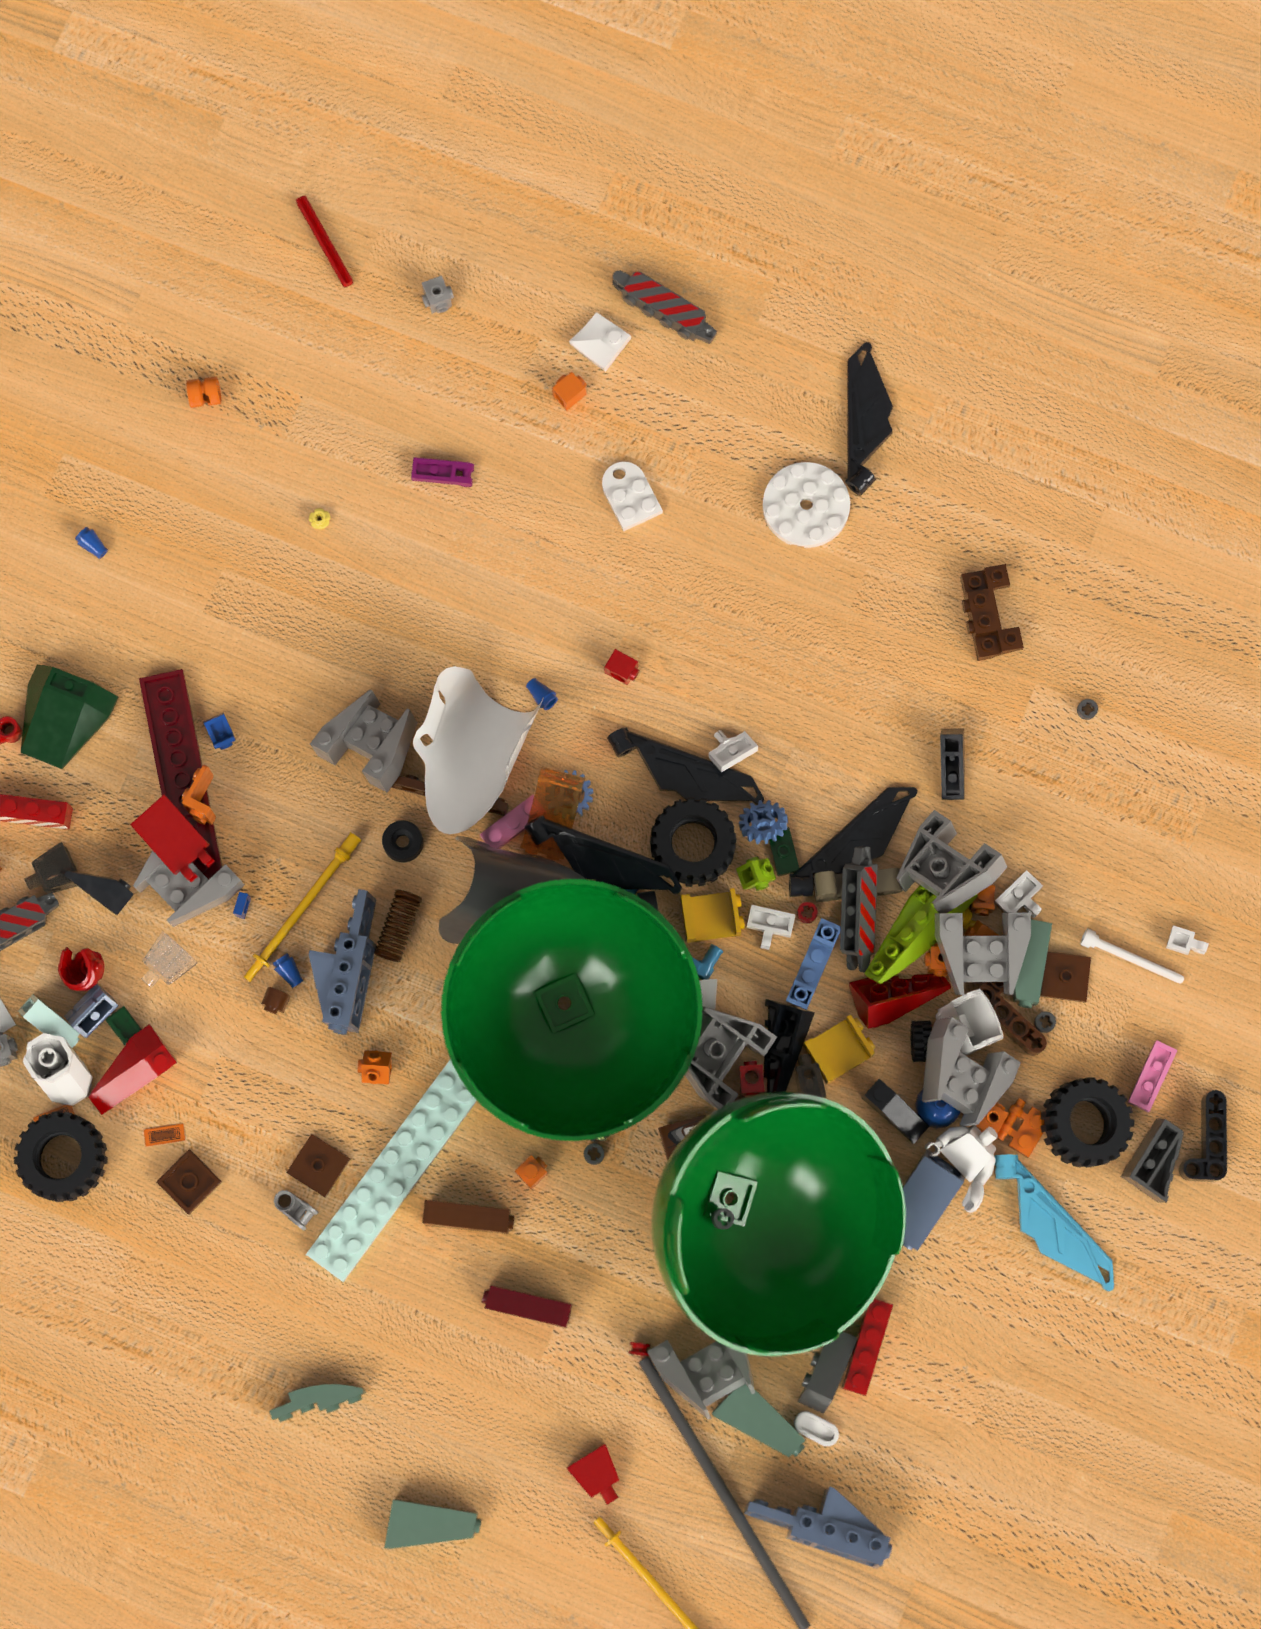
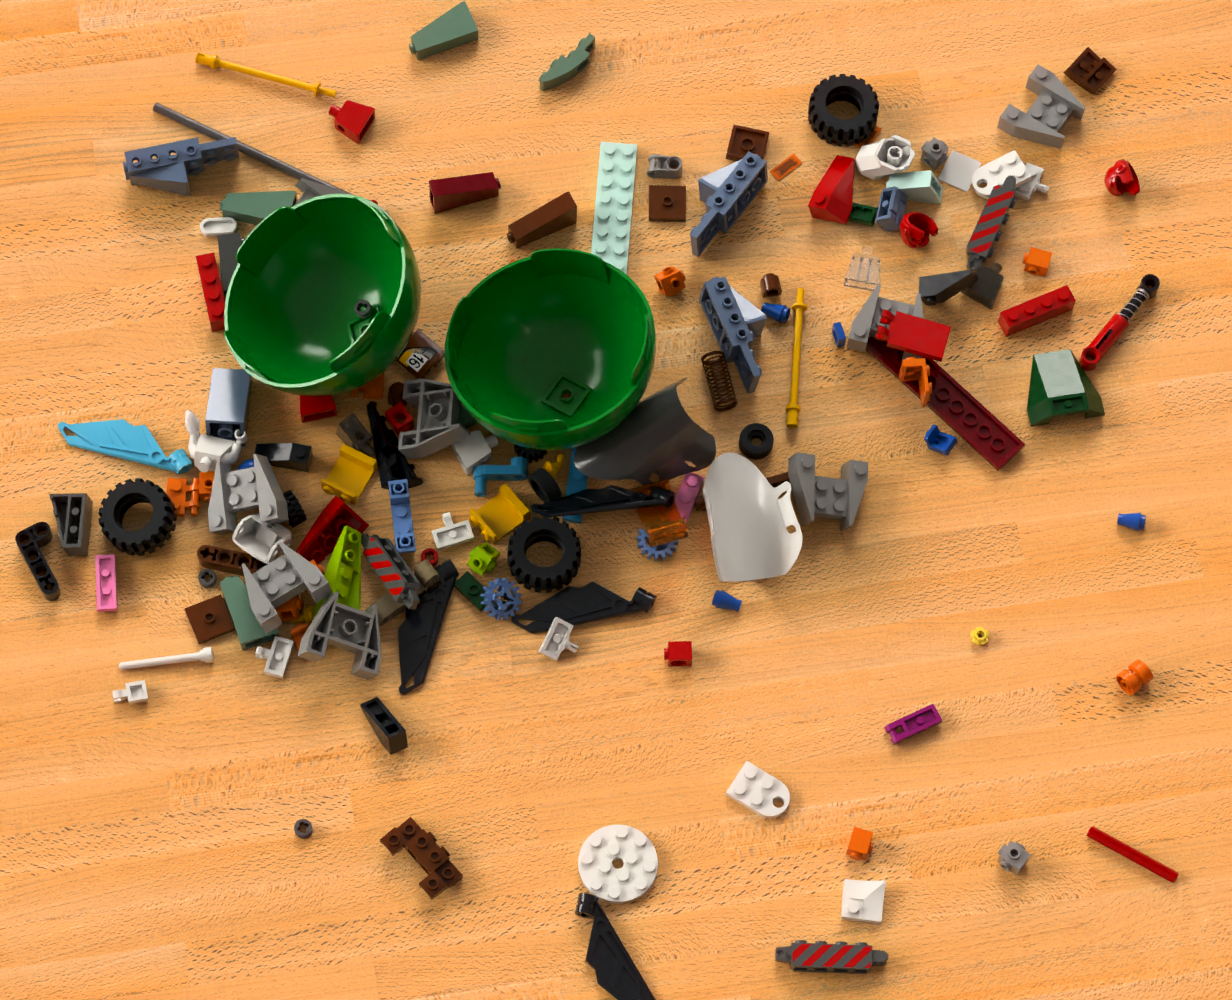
camera: 145 degrees right, 10 degrees down
(254, 1135) = (726, 197): none -> sand blue wedge

